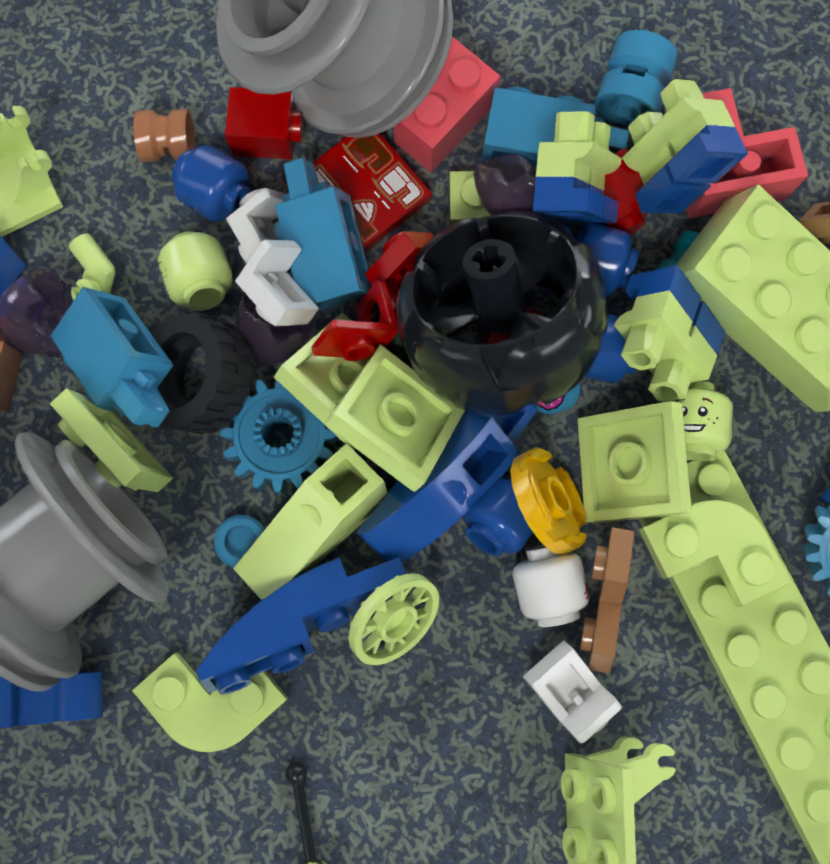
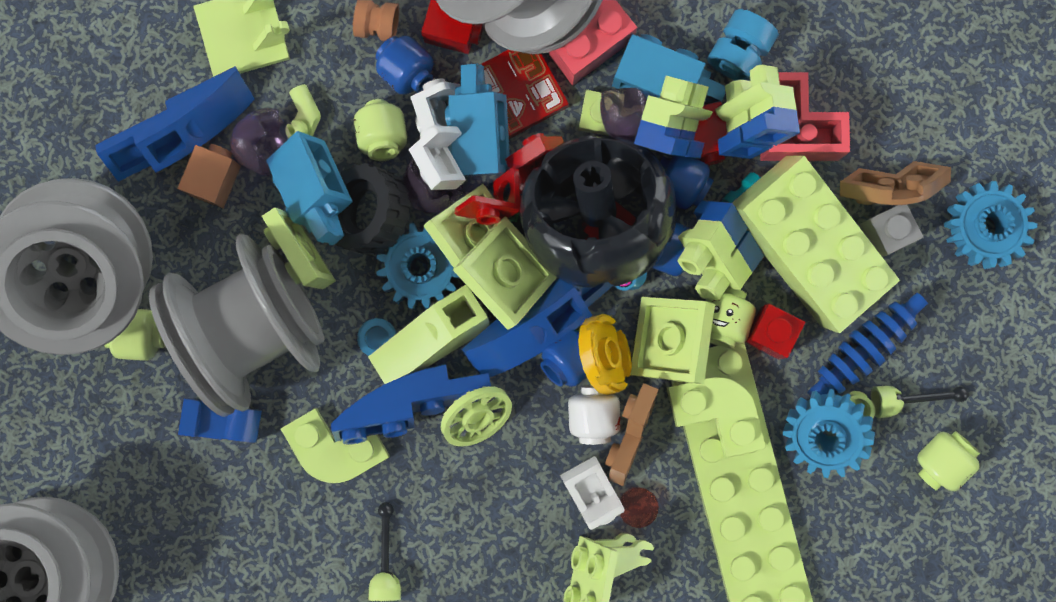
camera: 15 degrees right, 5 degrees up
(639, 697) = (640, 507): none -> clear red tile
(764, 427) = (775, 331): none -> red brick

